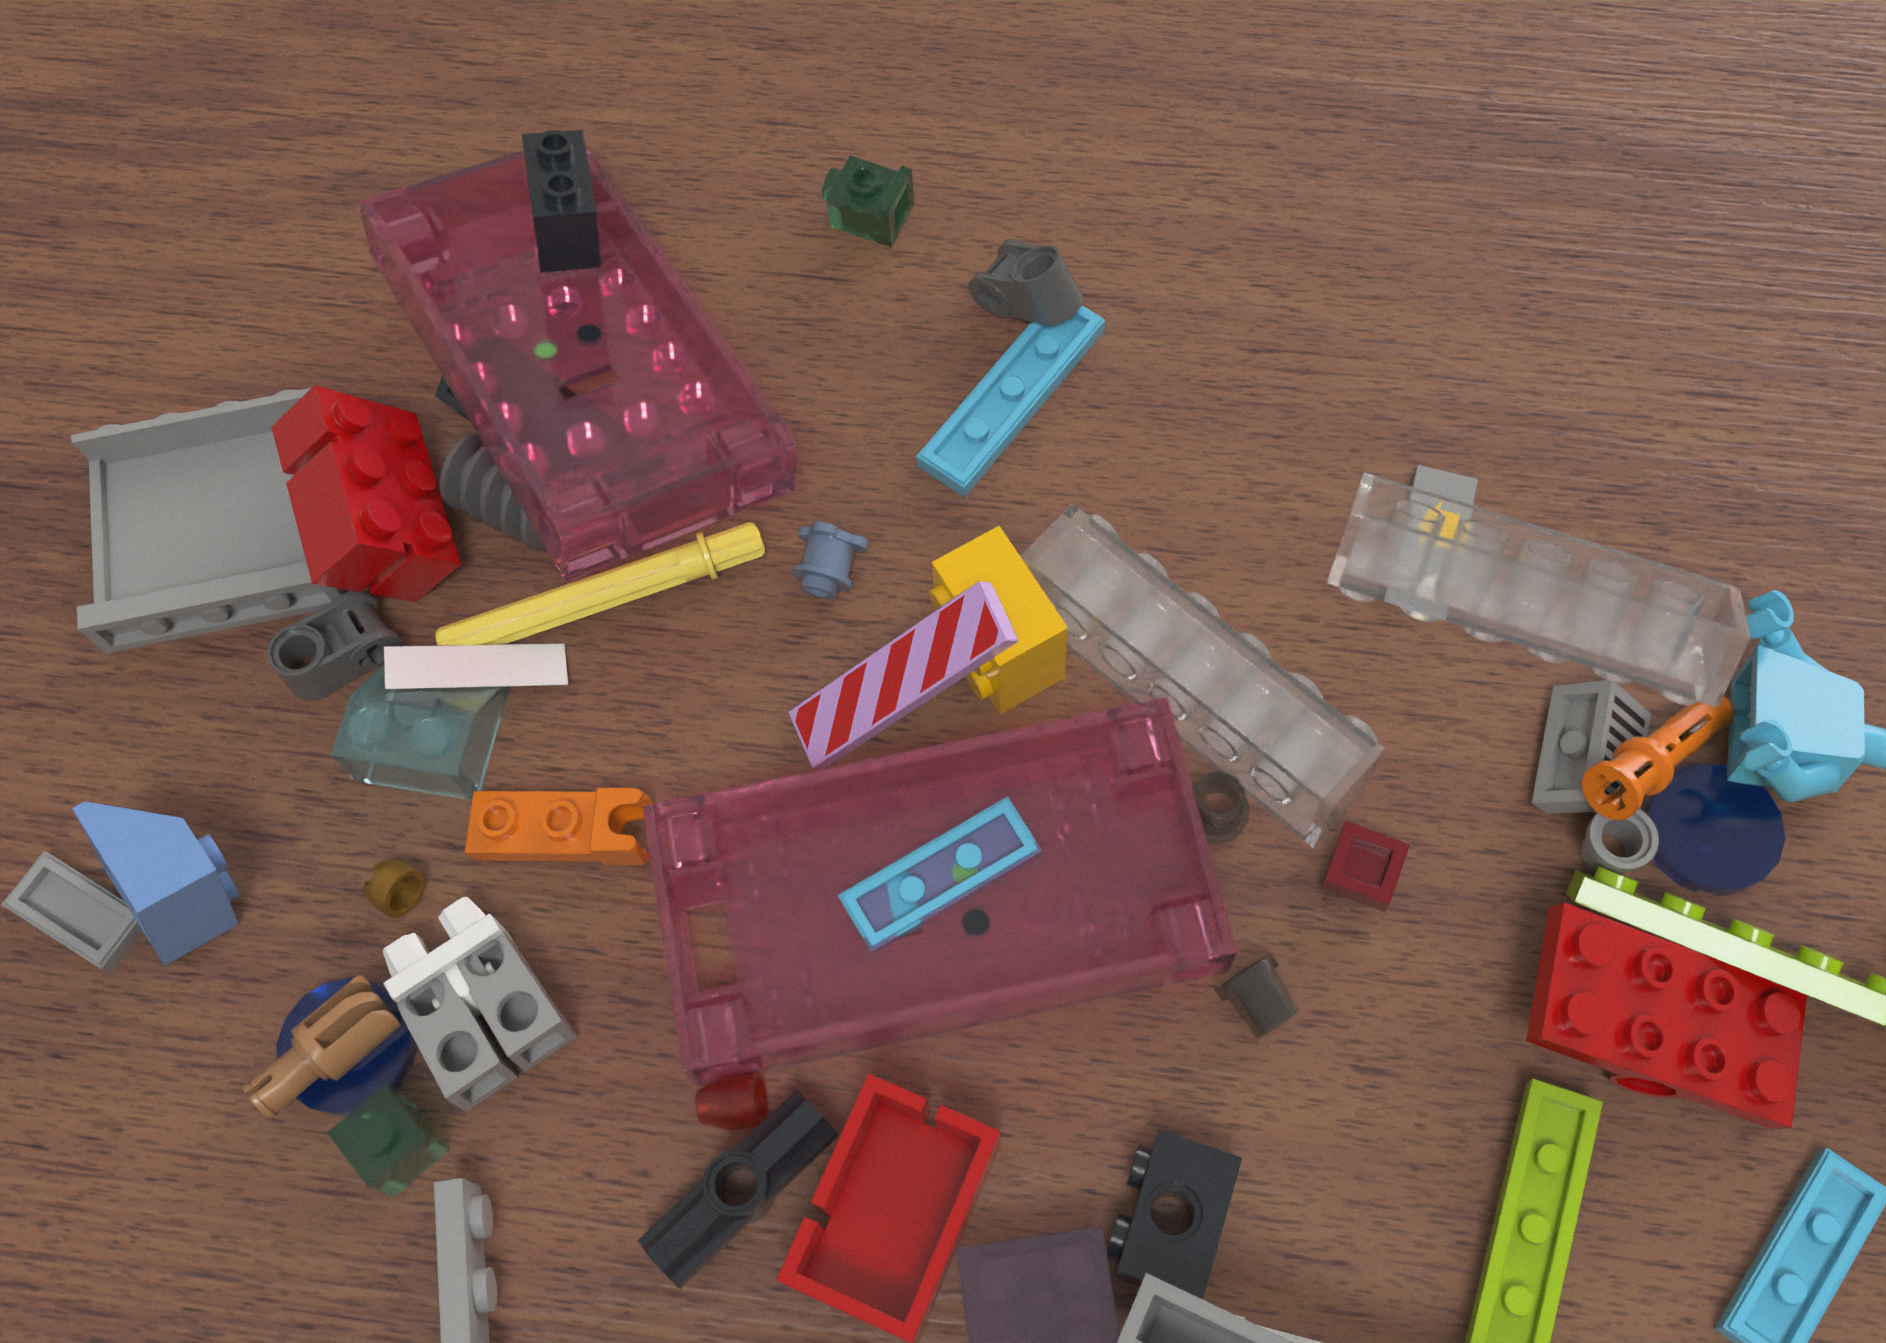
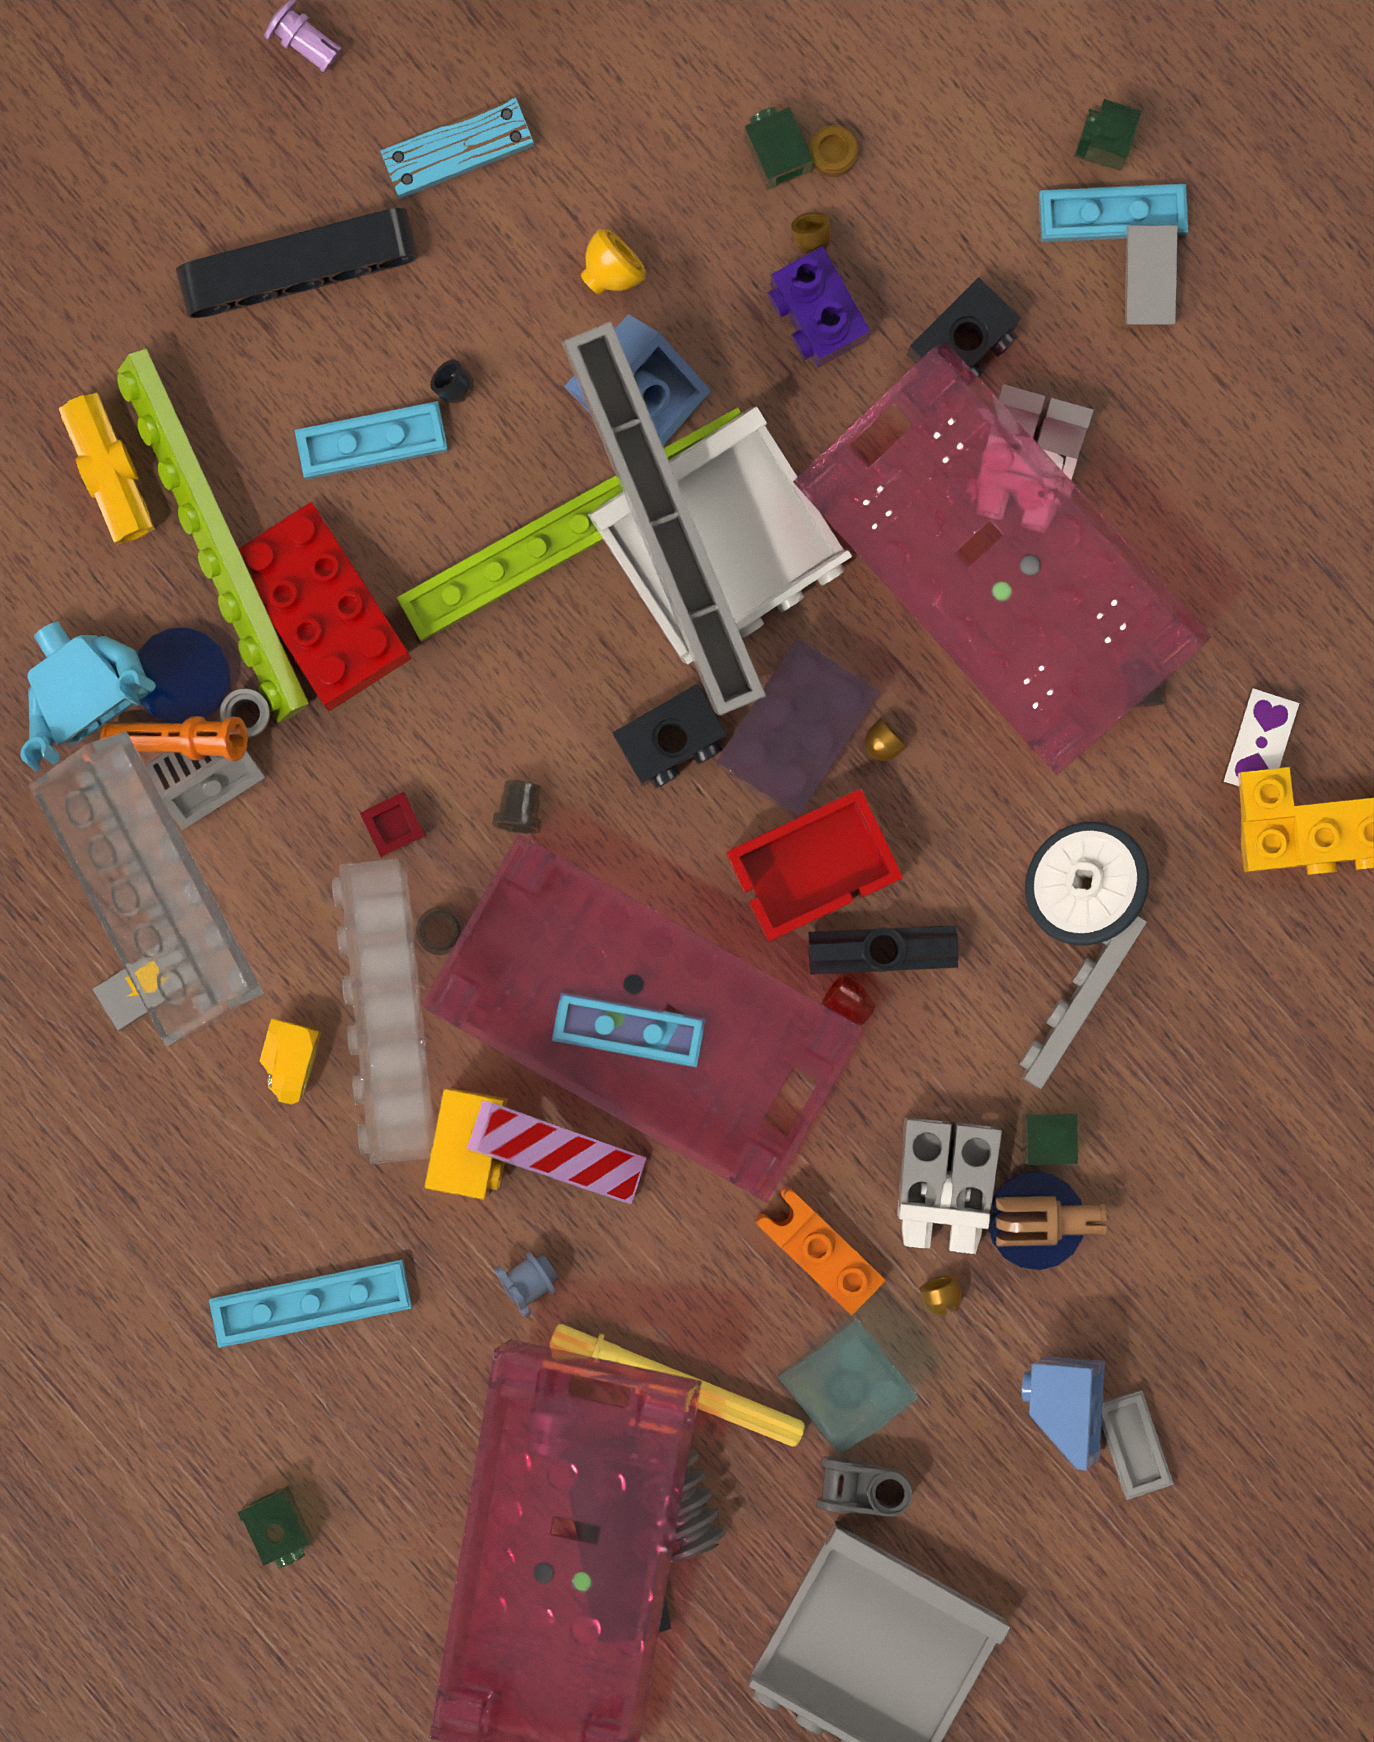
camera: 145 degrees left, 20 degrees up
(367, 498) = (774, 1547): red piece -> none
(474, 666) = (790, 1397): white sticker -> none
(561, 200) = (495, 1658): black brick -> none
(1027, 285) = (238, 1369): dark grey piece -> none
(1241, 568) = (289, 1058): none -> yellow rock

